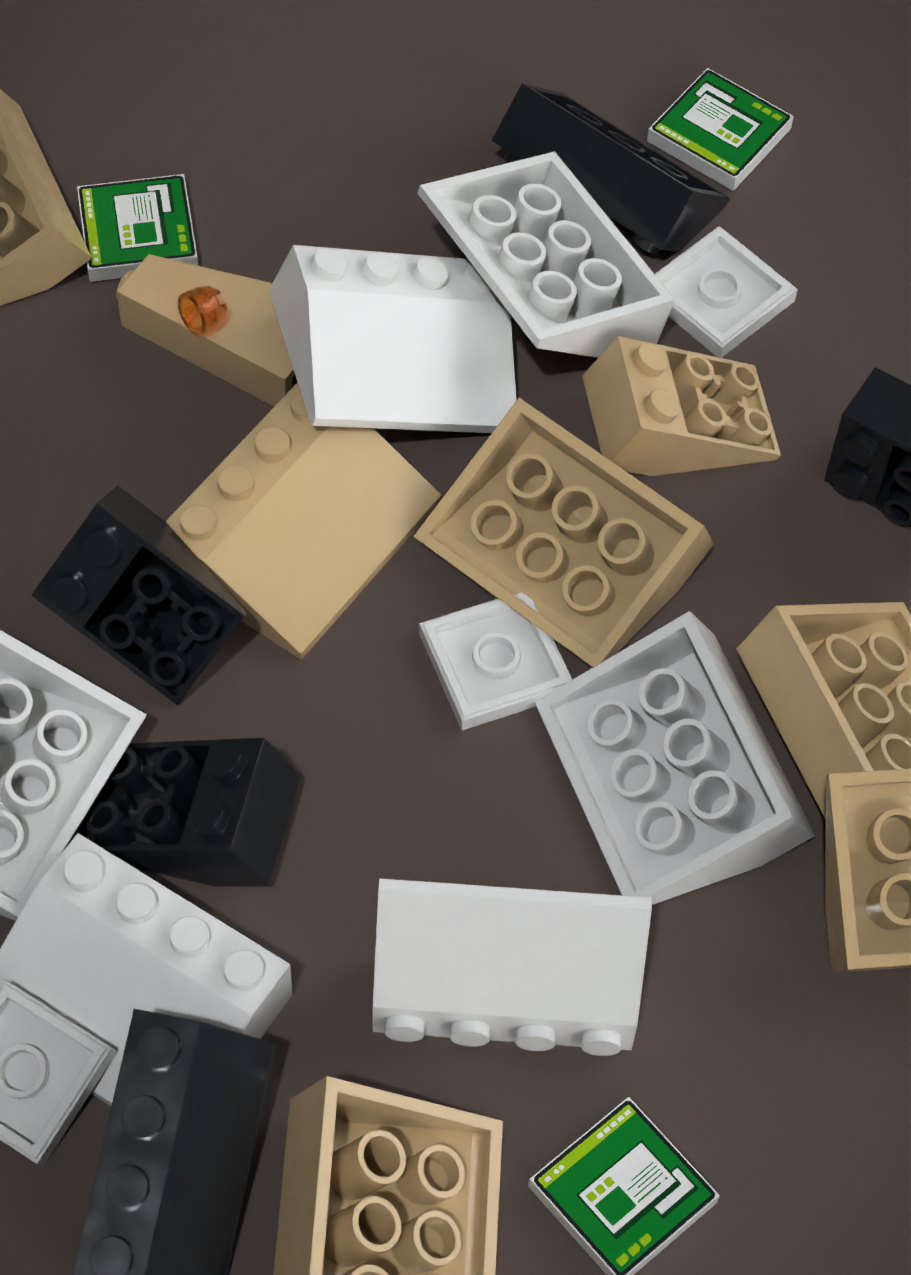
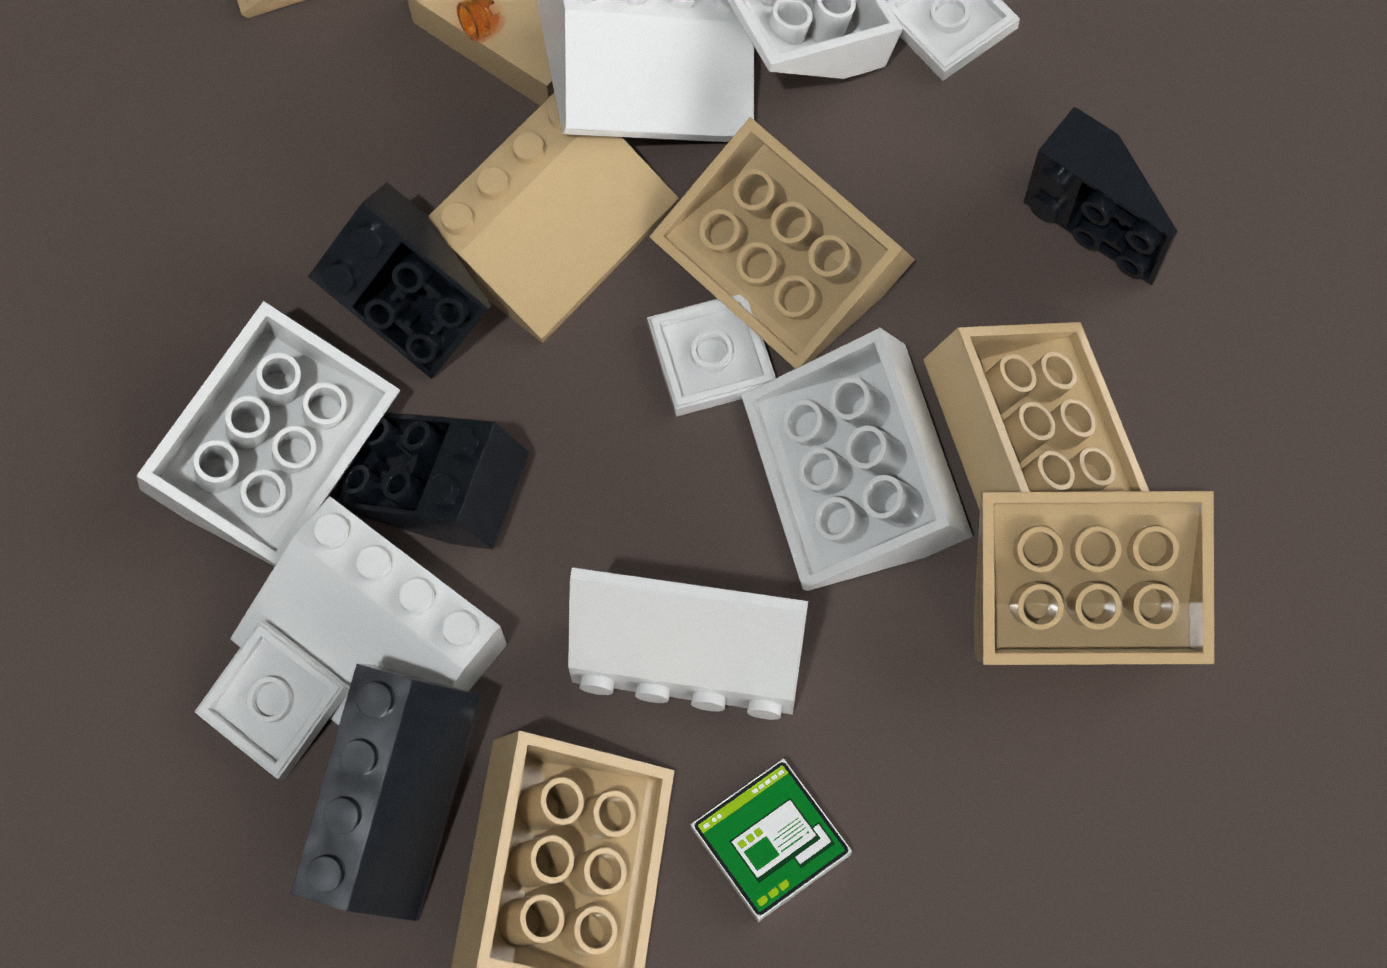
camera: 10 degrees right, 10 degrees up
(677, 409) = (897, 130): tan slope -> none

